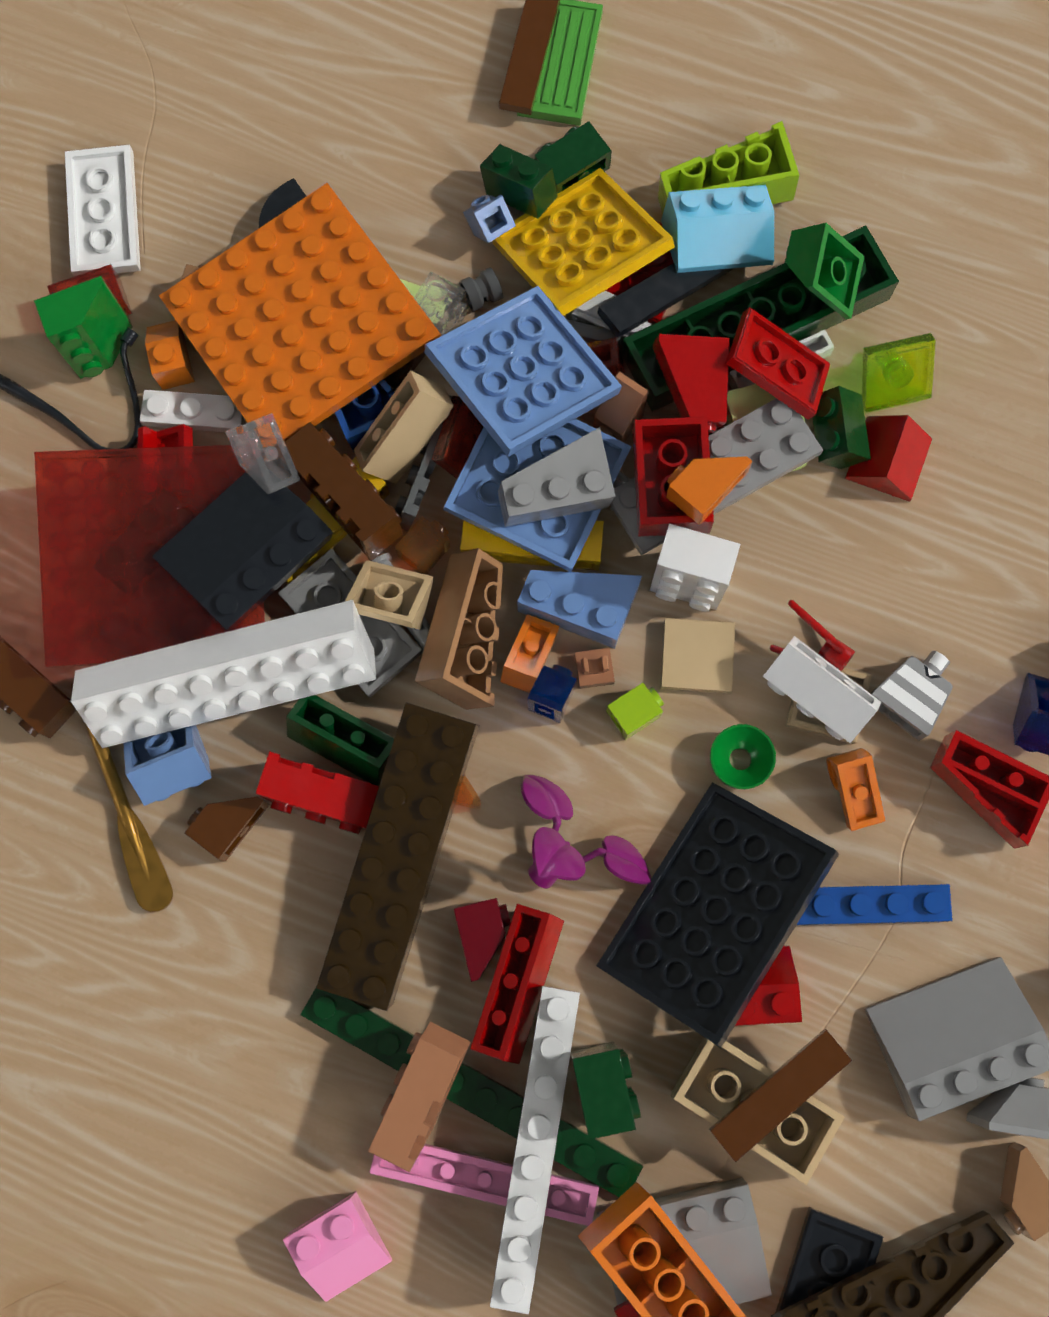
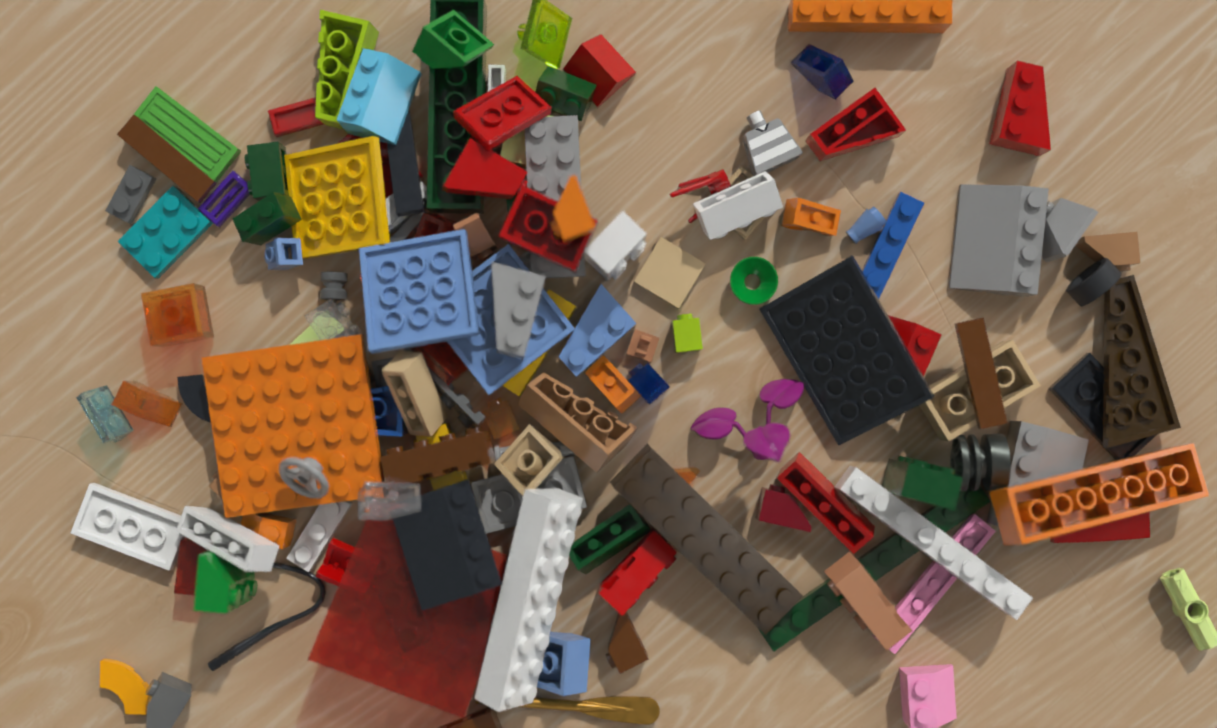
camera: 65 degrees left, 10 degrees up
(135, 309) = (228, 539): none -> white brick
(214, 121) = (106, 419): none -> clear light blue bracket
(248, 160) = (146, 403): none -> clear orange slope
(250, 350) = (306, 473): none -> light grey piece
(362, 142) = (177, 315): none -> clear orange brick
(448, 91) = (165, 232): none -> teal plate
(470, 38) = (130, 194): none -> dark grey plate
(516, 138) = (220, 220): none -> dark purple tile
(645, 158) = (294, 117): none -> red tile
(668, 1156) = (984, 462): none -> pearl dark grey wheel
(885, 862) = (866, 225): none -> medium blue cone
(975, 1190) = (1093, 282): none -> black tyre

